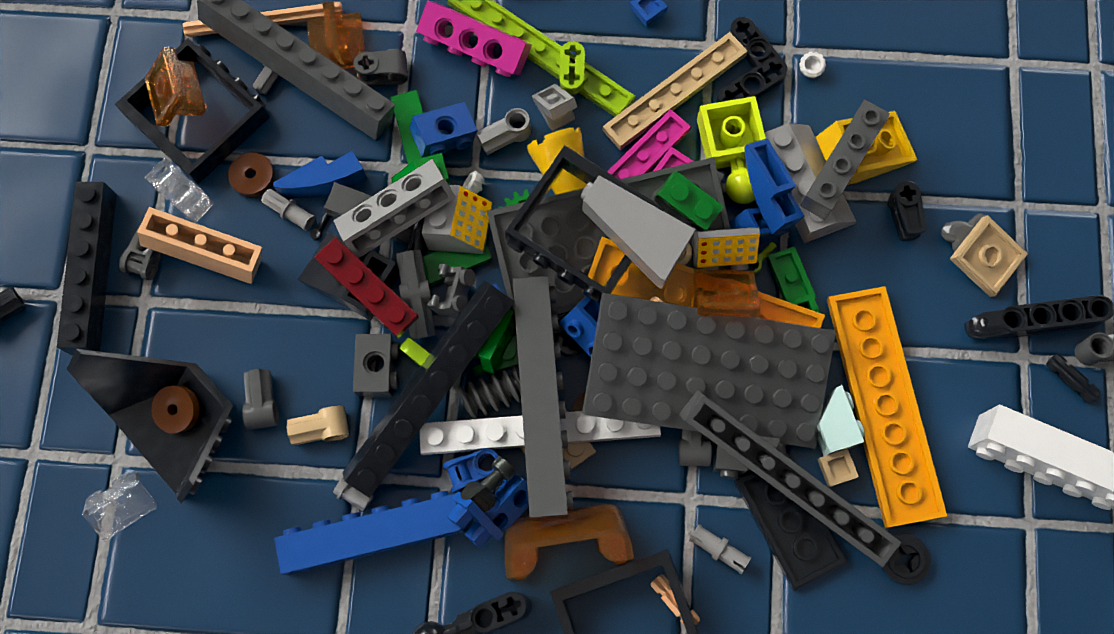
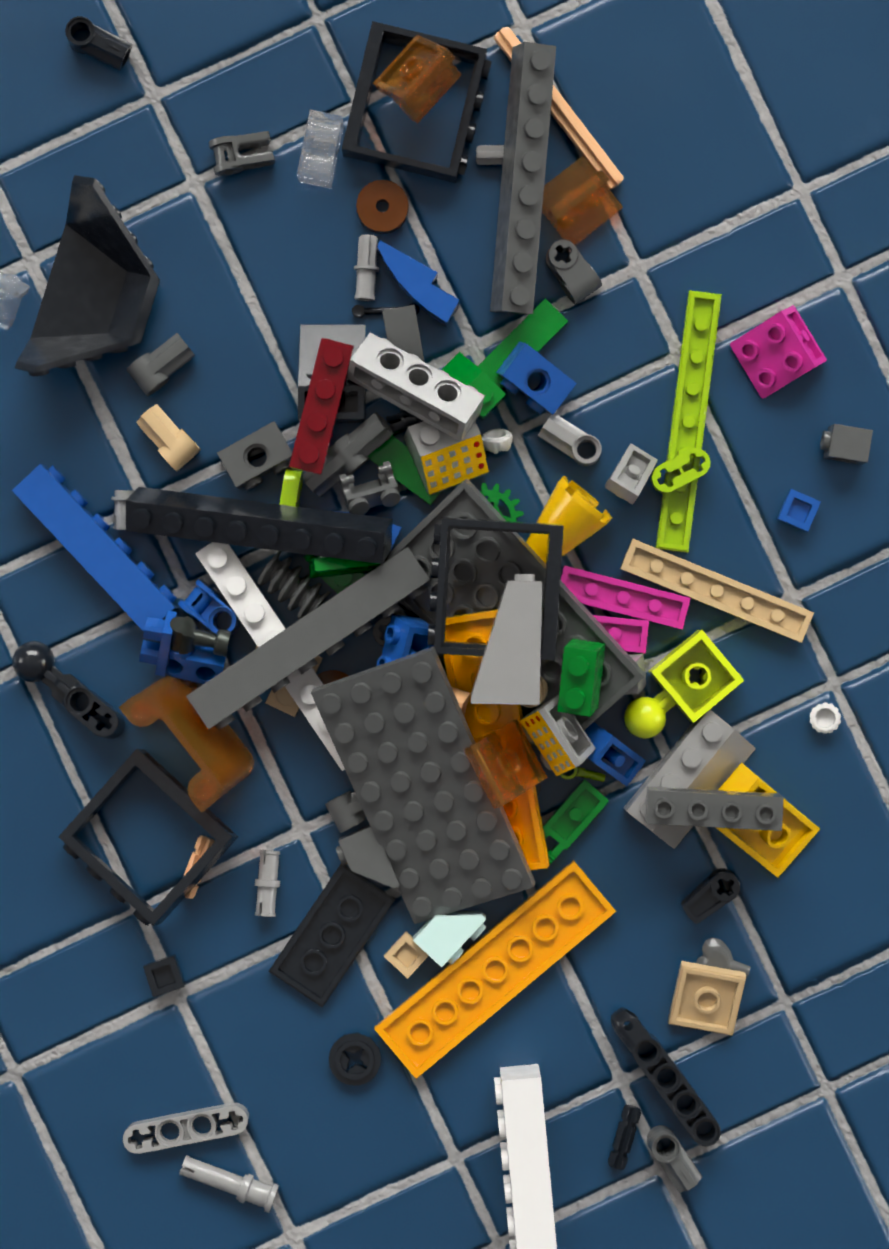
camera: 55 degrees right, 15 degrees up
(87, 267) = (192, 107): black brick -> none
(164, 413) = (117, 295): reddish brown piece -> none
(199, 245) = (274, 212): light nougat brick -> none
(433, 25) = (667, 363): dark pink brick -> none
(760, 65) = (797, 662): black beam -> none
(772, 186) = (652, 748): blue slope -> none
(789, 478) = (361, 913): dark grey brick -> none

